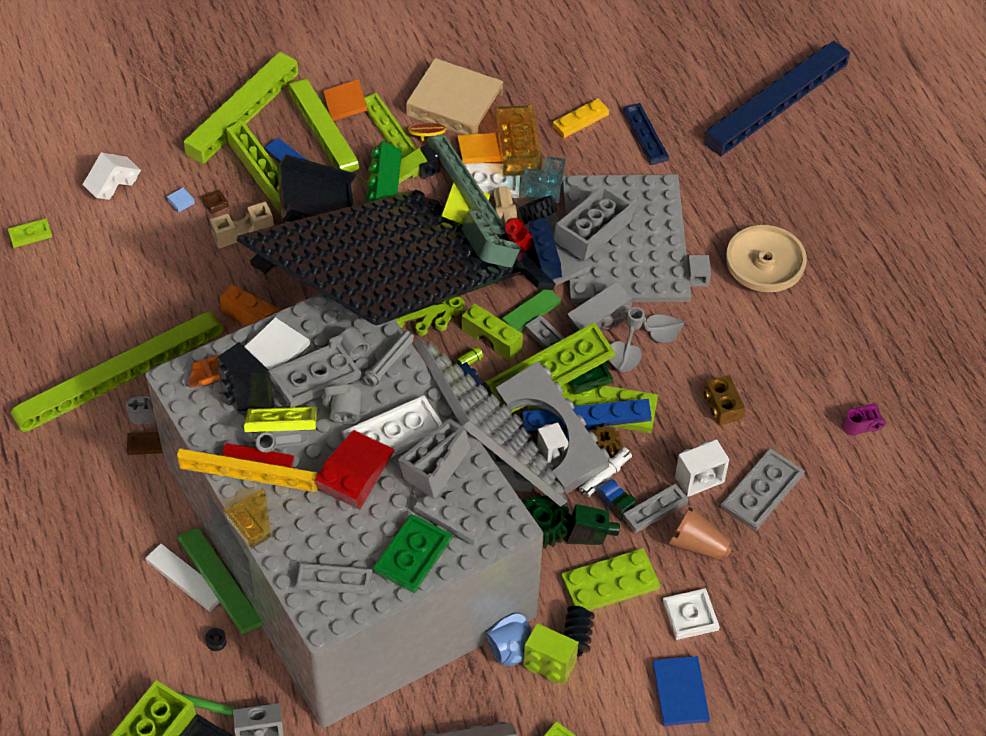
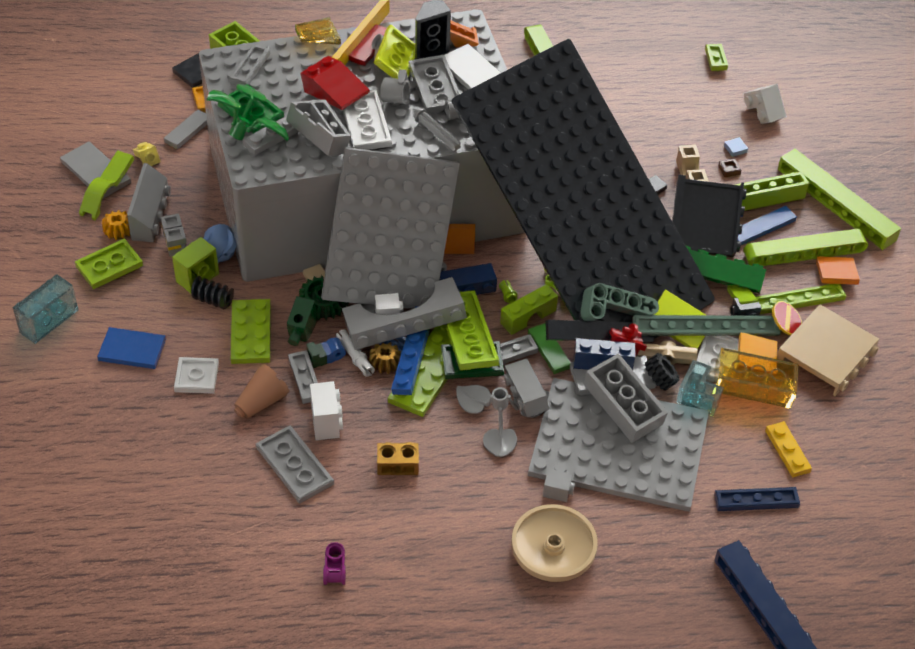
camera: 105 degrees right, 5 degrees down
(460, 539) = (240, 125): none -> green plant
(516, 690) = (173, 233): none -> light grey hips

